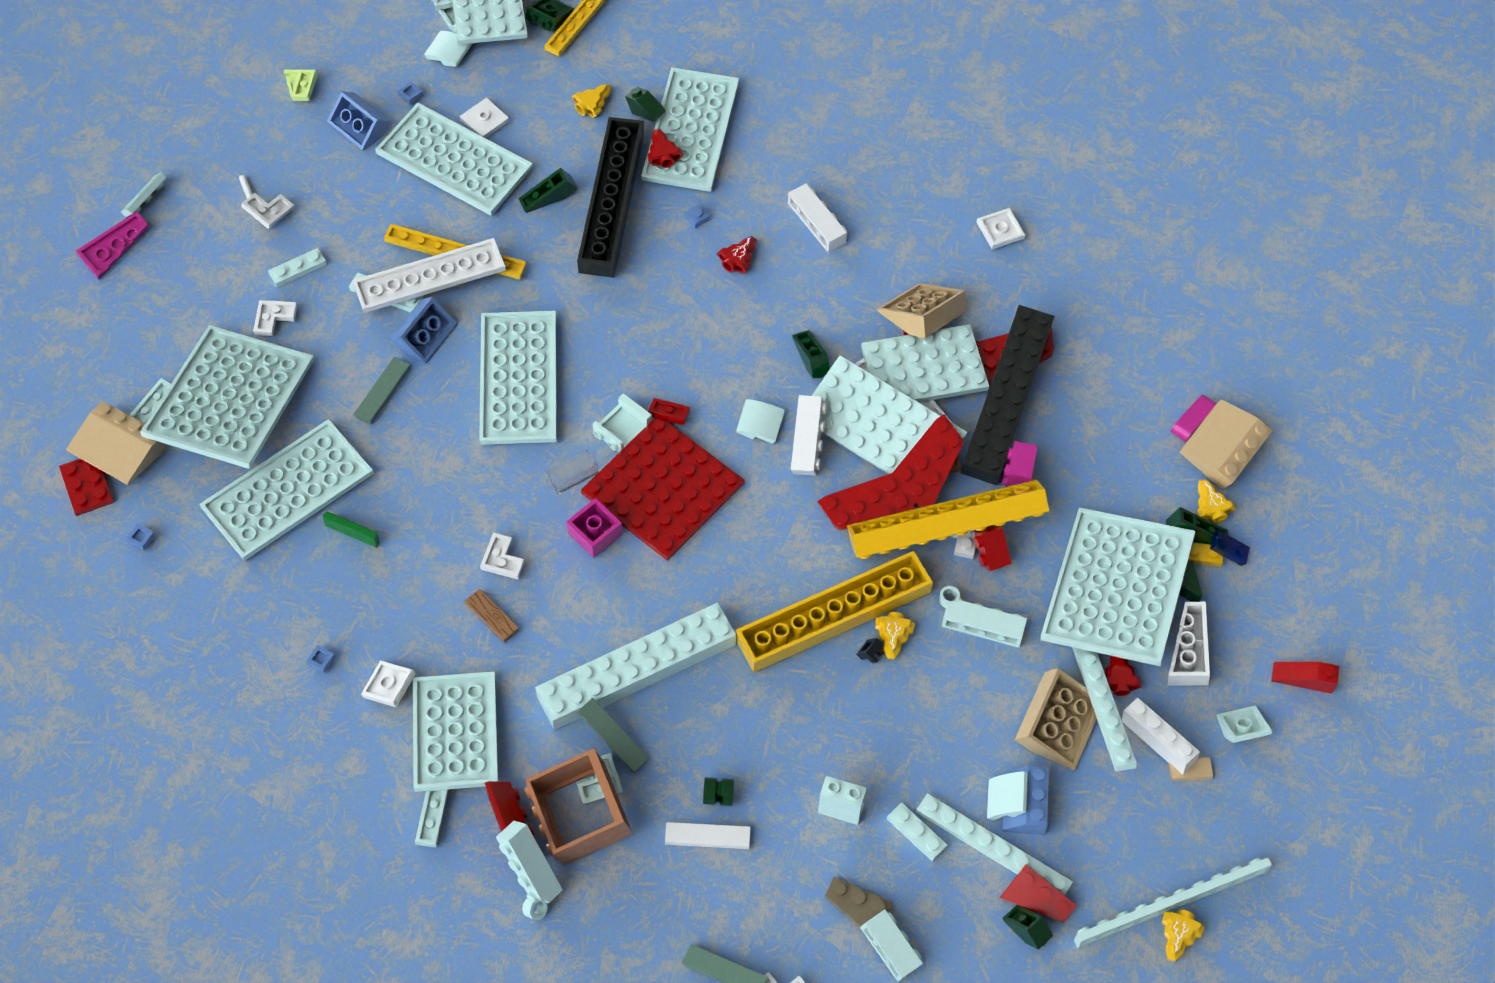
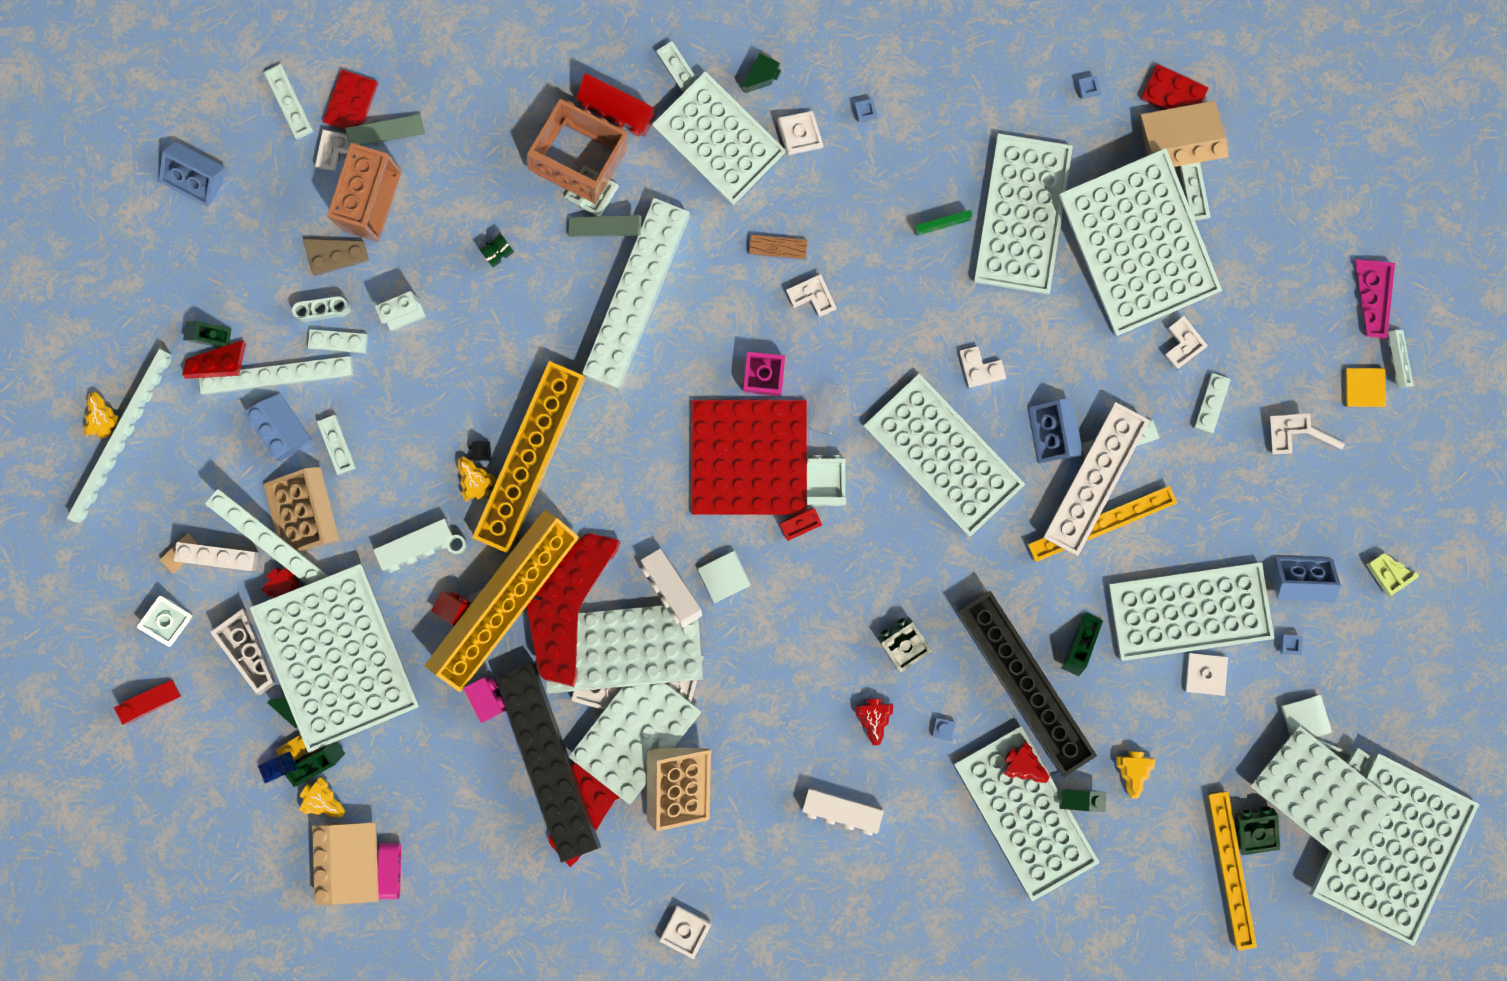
camera: 145 degrees right, 25 degrees up
(186, 198) = (1365, 387): none -> yellow tile
(371, 754) = (762, 73): none -> dark green slope
(382, 390) = (1036, 355): sand green tile -> none
(435, 413) = (977, 372): none -> white plate
(531, 868) = (568, 78): light aqua hinge -> none
(671, 282) = (904, 644): none -> plate
(707, 835) = (479, 216): white tile -> none
(789, 912) = (364, 192): none -> nougat window
(812, 354) = (736, 672): dark green slope -> none
(892, 945) = (286, 241): light aqua brick -> none
(904, 856) = (313, 305): none -> light aqua beam
(986, 748) = (336, 445): none -> light aqua plate
(1007, 795) = (290, 416): light aqua slope -> none

